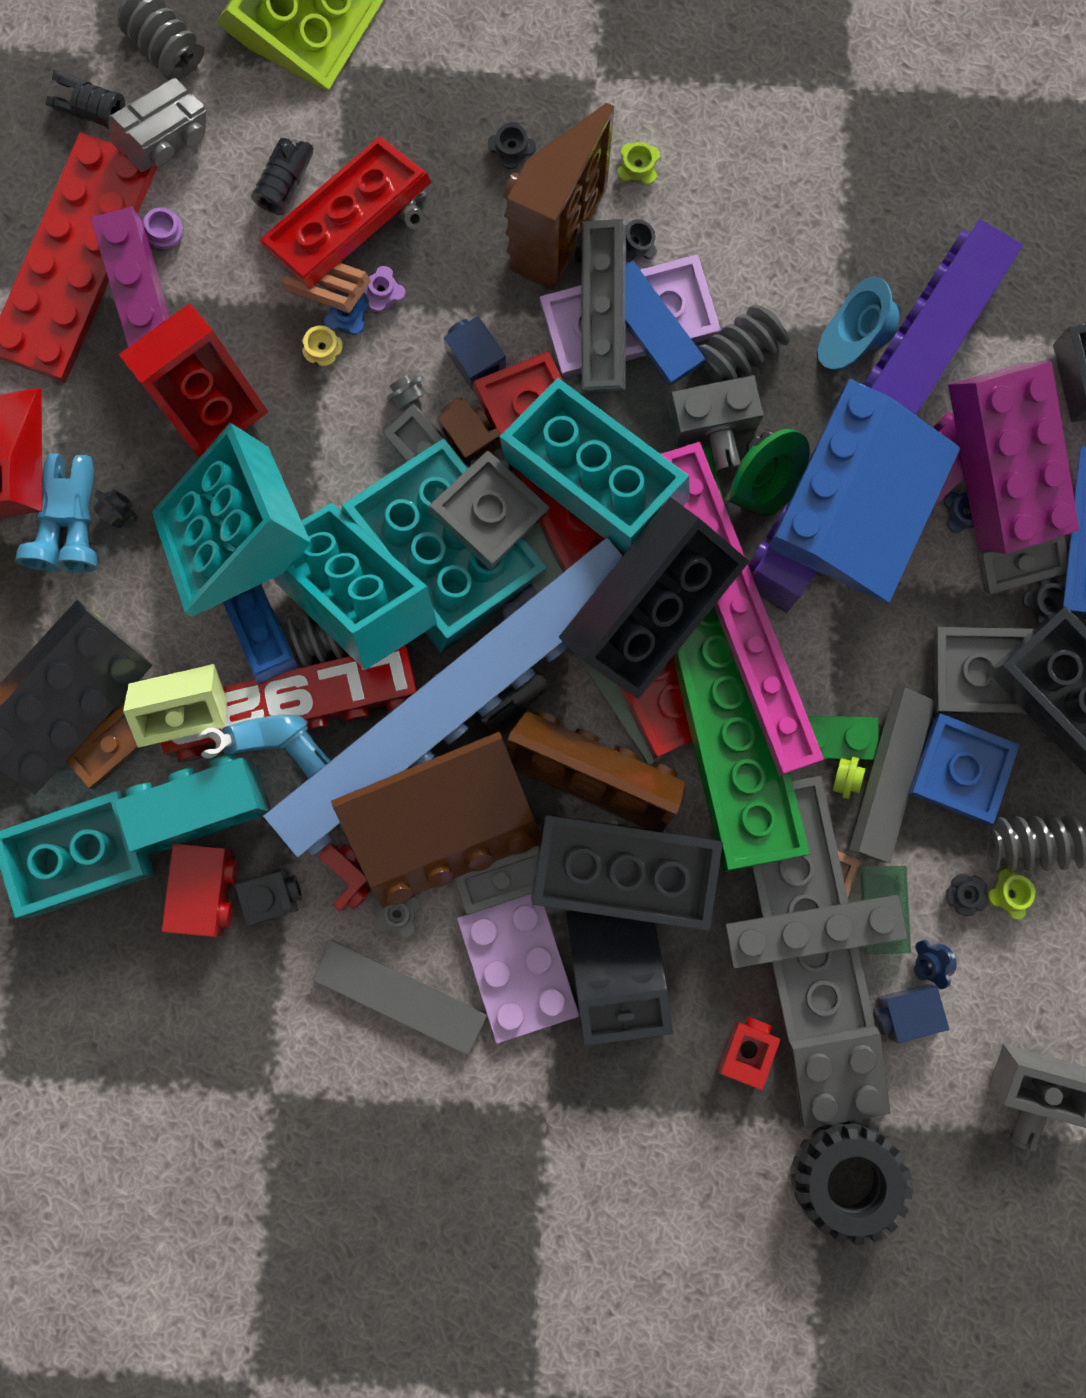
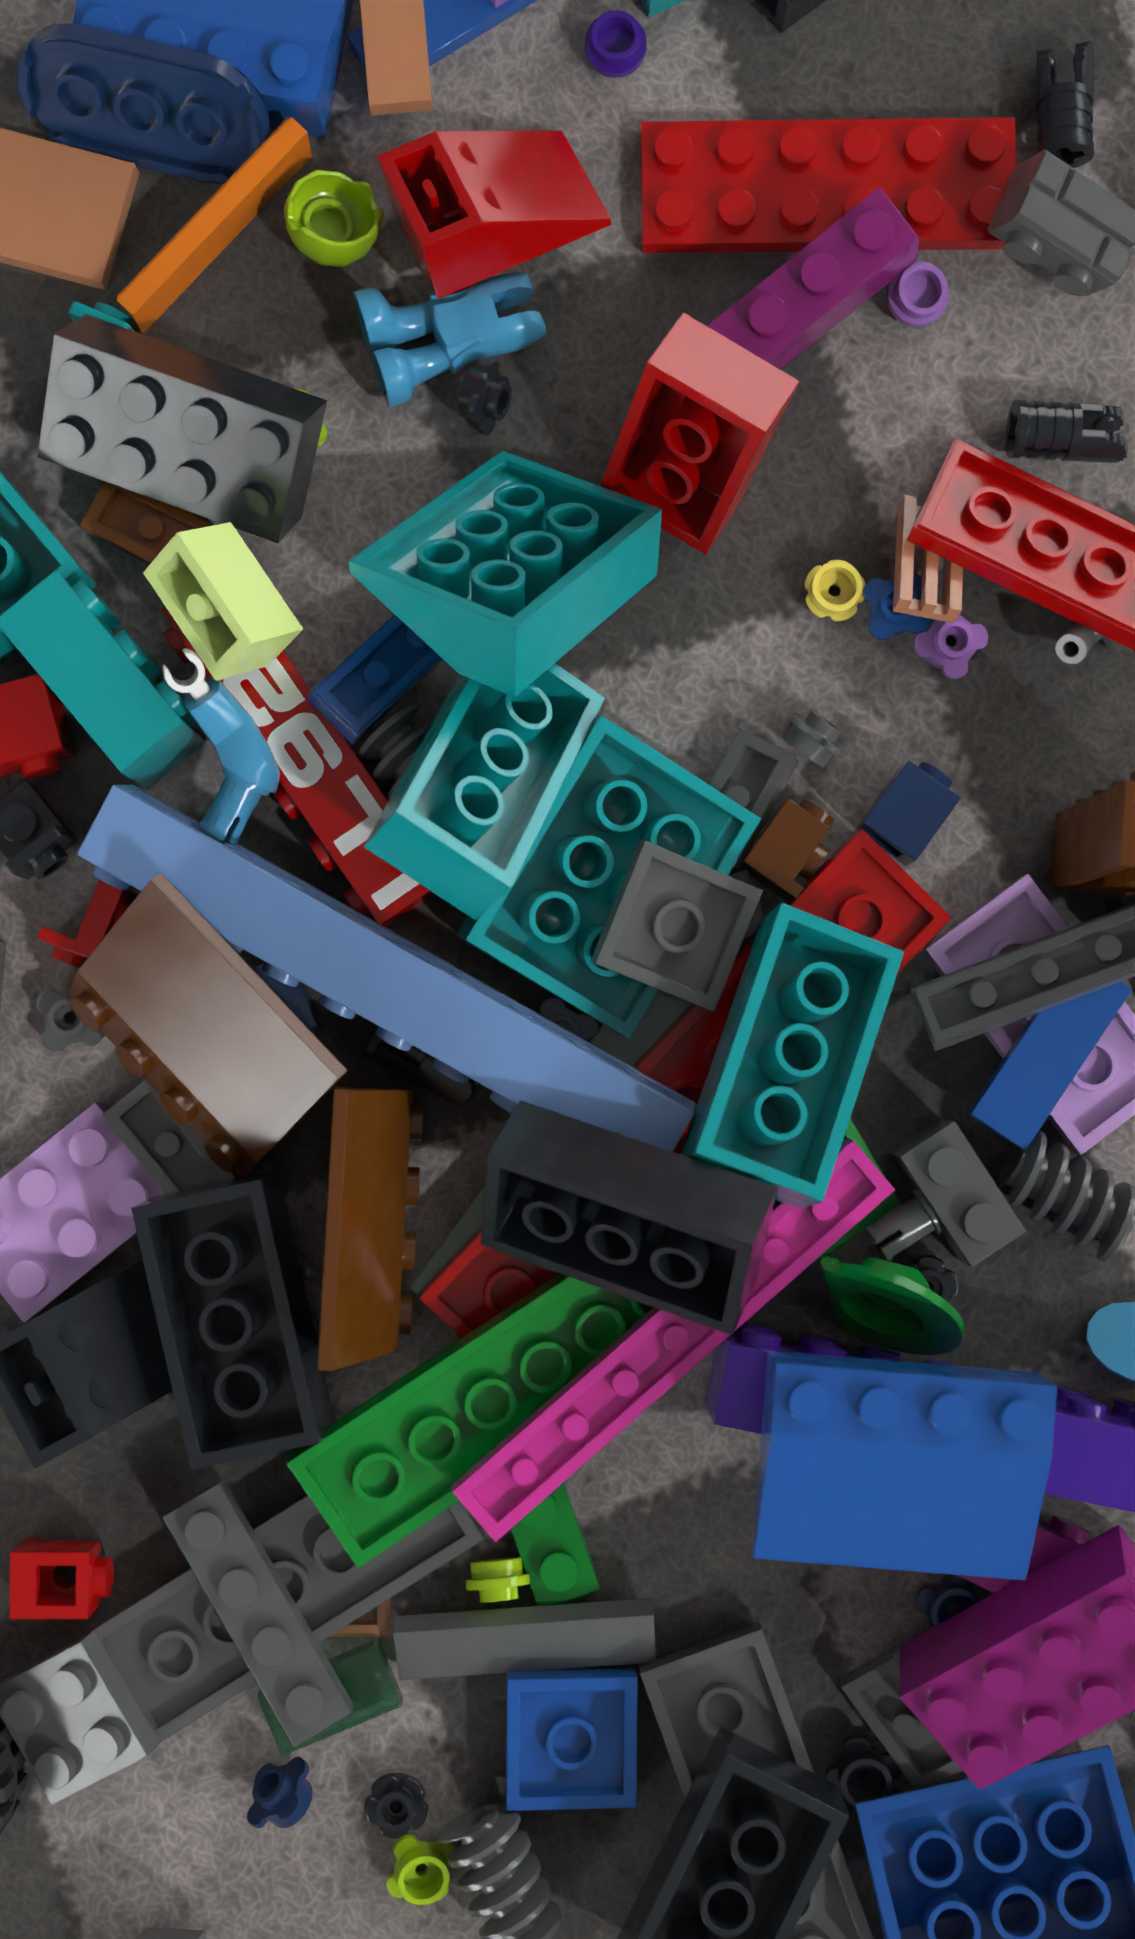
camera: 65 degrees right, 5 degrees up
(911, 1013) = (198, 1787): dark blue brick -> none

